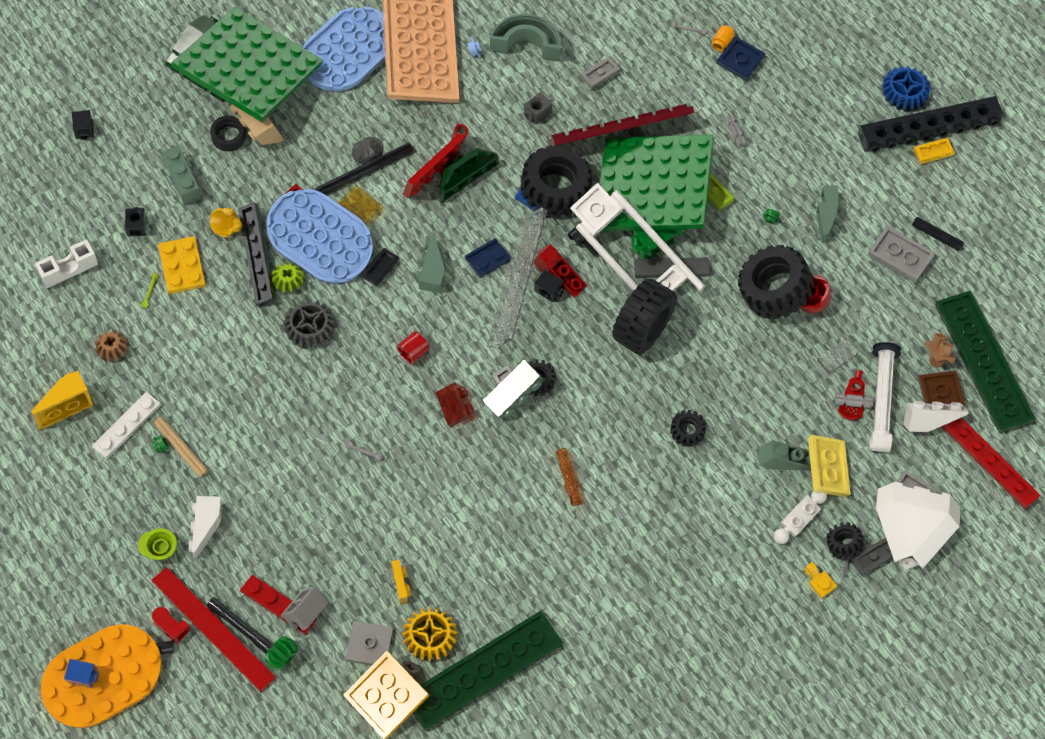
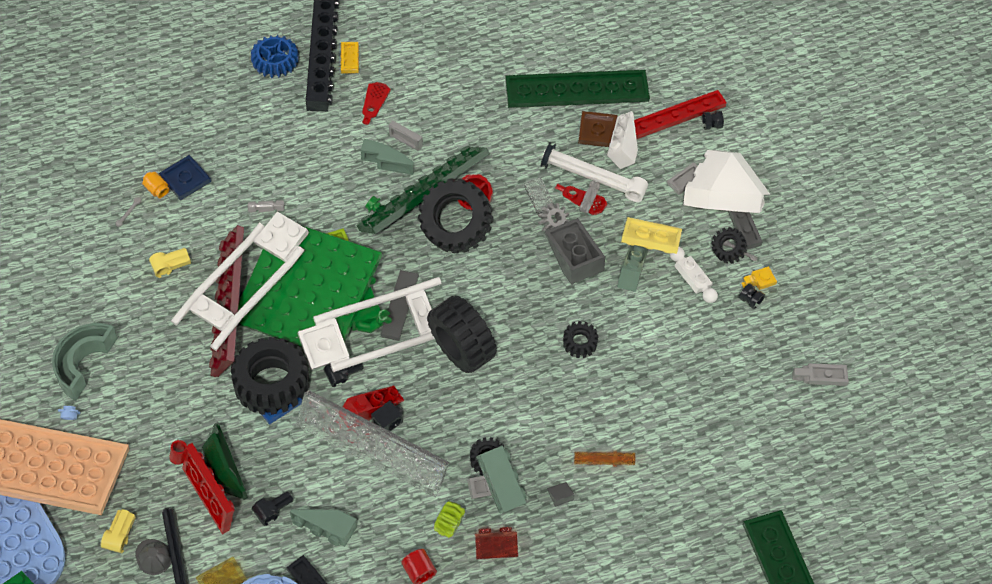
camera: 75 degrees left, 5 degrees down
(374, 117) = (117, 535): none -> light yellow piece
(433, 219) = (268, 509): none -> black axle
(463, 359) = (449, 519): none -> lime gear
(487, 258) = (331, 469): dark blue plate -> none
(521, 448) = (561, 494): none -> dark grey slope
(537, 102) = (168, 366): dark grey brick -> none
(600, 73) = (150, 304): light grey plate -> none
(644, 70) = (165, 263): none -> light yellow piece
(687, 142) = (279, 238): none -> white plate
(727, 659) = (822, 374): none -> light grey hinge
(782, 399) = (575, 251): none -> dark grey slope
(795, 573) = (751, 296): none -> black wheel
(809, 379) = (552, 210): none -> light grey gear
(824, 263) = (413, 194): none -> dark green plate
(859, 221) = (405, 135): none -> light grey tile
(901, 254) = (449, 115): light grey plate -> none
(908, 186) = (375, 98): none -> red piece
(938, 233) = (436, 82): black axle -> none
(939, 350) = (561, 117): medium nougat hips -> none
(998, 498) = (713, 120): none -> black wheel

